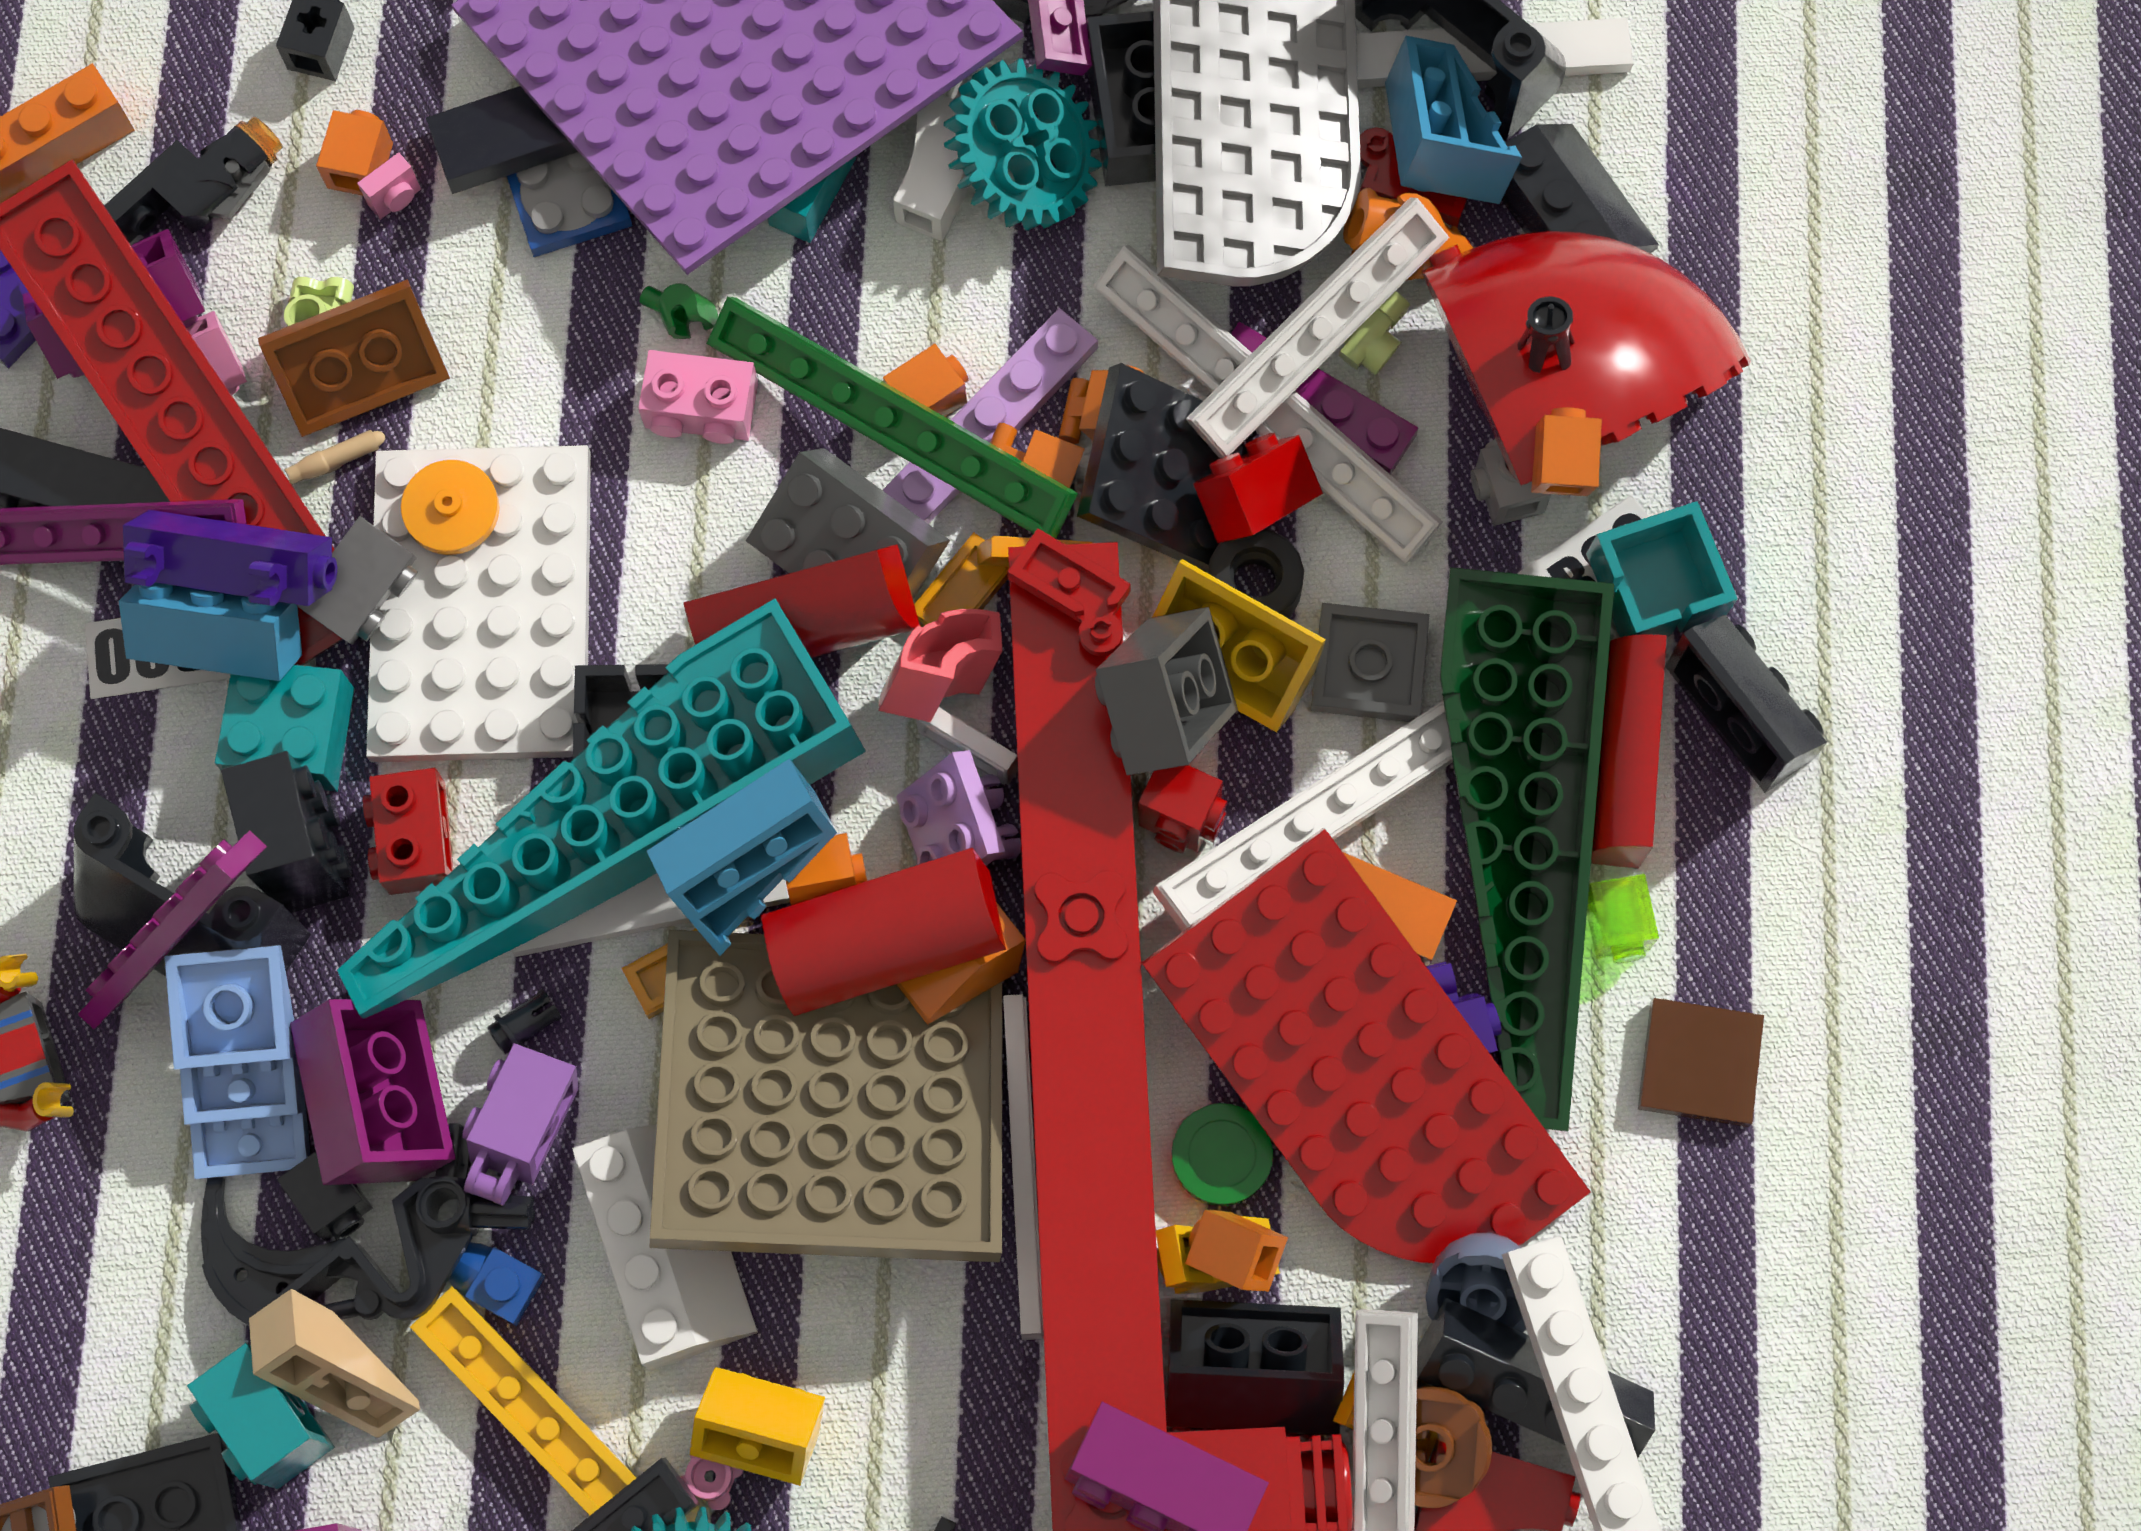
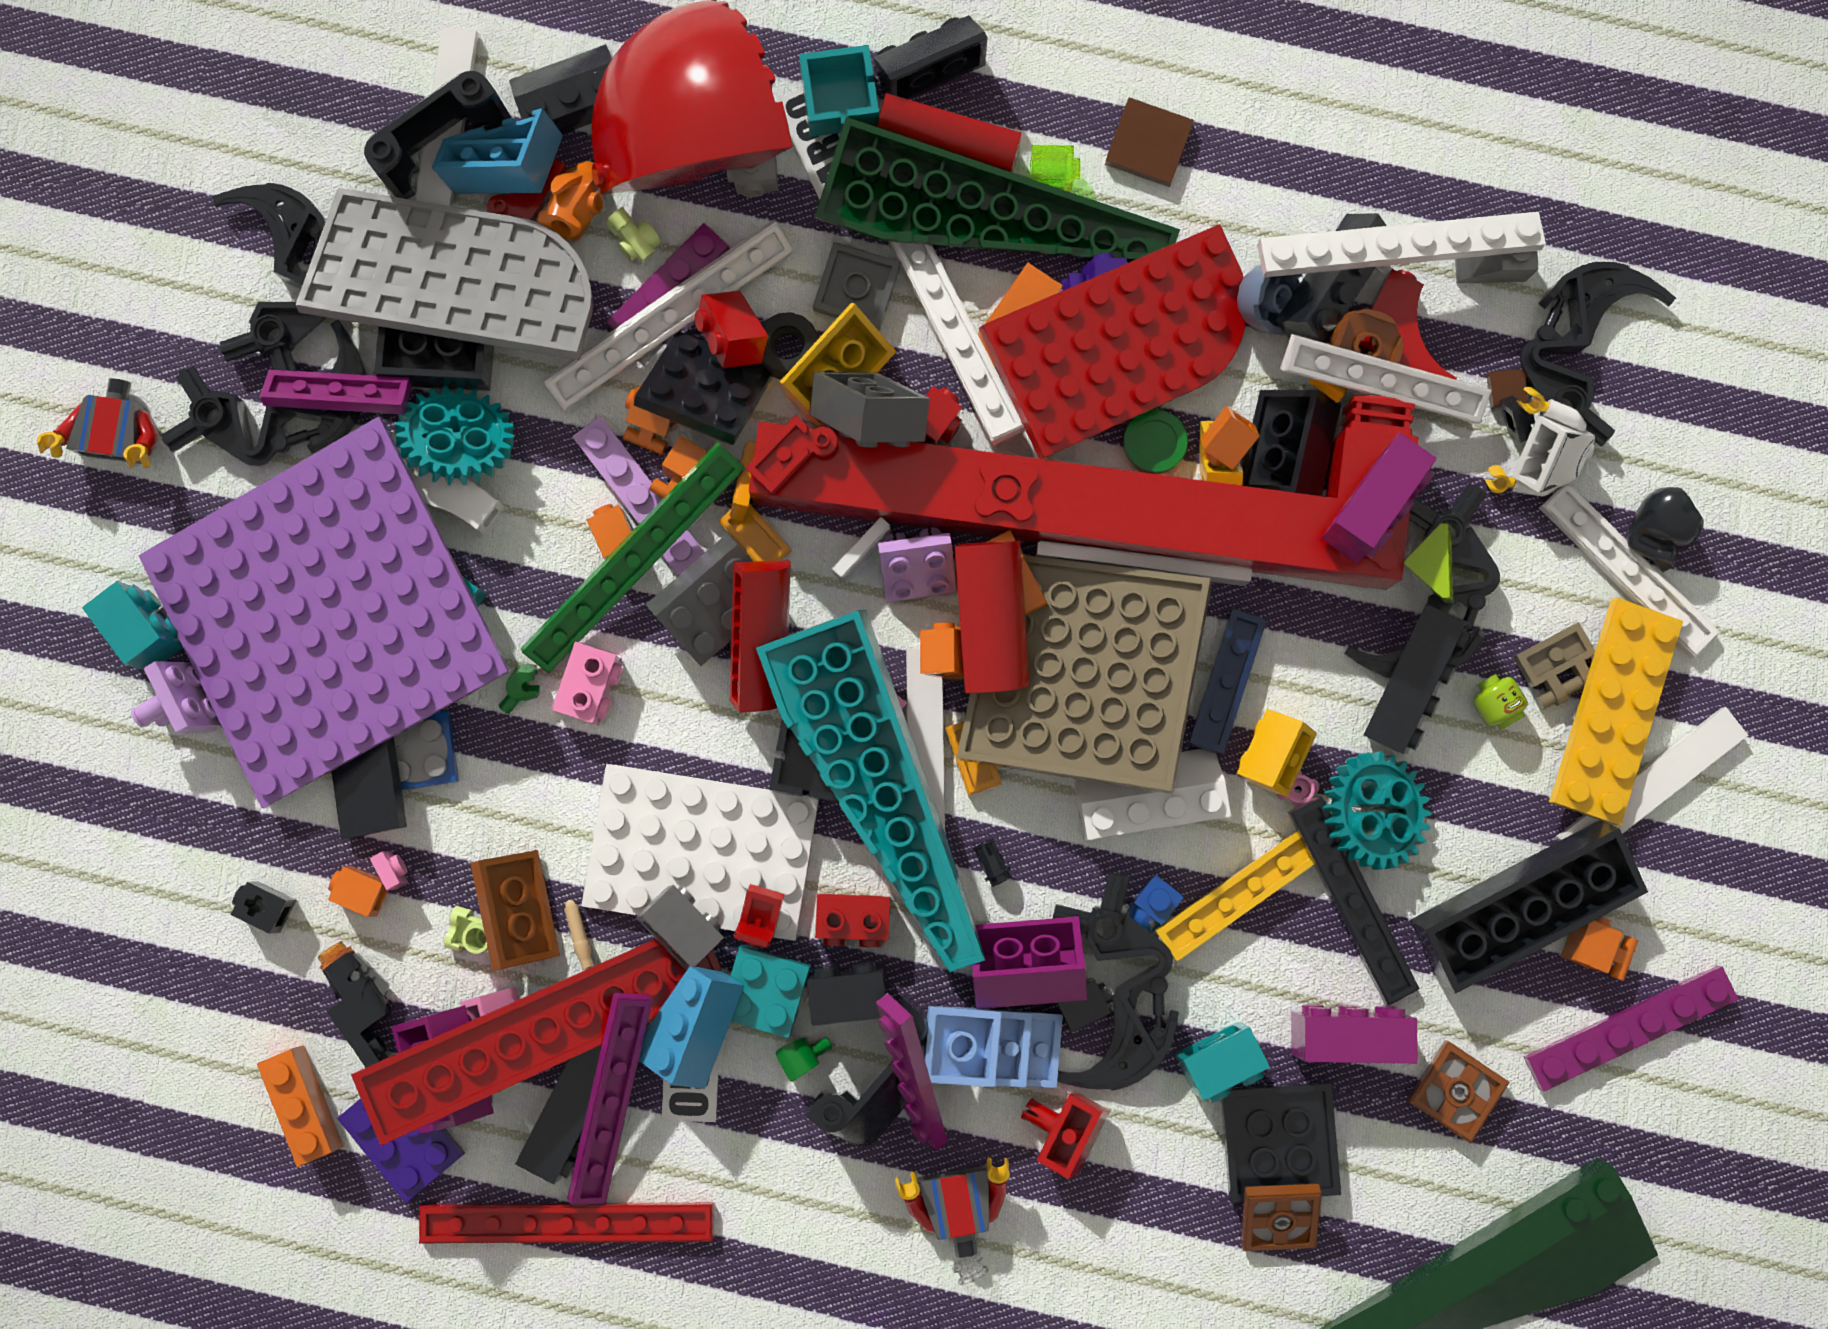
camera: 80 degrees left, 10 degrees up
(127, 1208) = (1070, 1132): none -> red brick
(196, 796) = (800, 1056): none -> green piece
(228, 558) = (657, 1006): dark purple brick -> none
(326, 1364) = (1197, 1015): tan slope -> none
(387, 690) = (759, 916): none -> red bracket
(450, 507) = (634, 860): light orange piece -> none
(517, 1121) = (1060, 873): medium lavender brick -> none
(741, 851) = (924, 694): dark azure wedge -> none
(860, 1331) = (1227, 682): none -> dark blue plate
(942, 661) = (812, 552): coral brick -> none
(1317, 328) = (631, 265): white tile -> none
(1548, 325) = (697, 99): black piece -> none
(1567, 453) = (782, 109): orange brick -> none

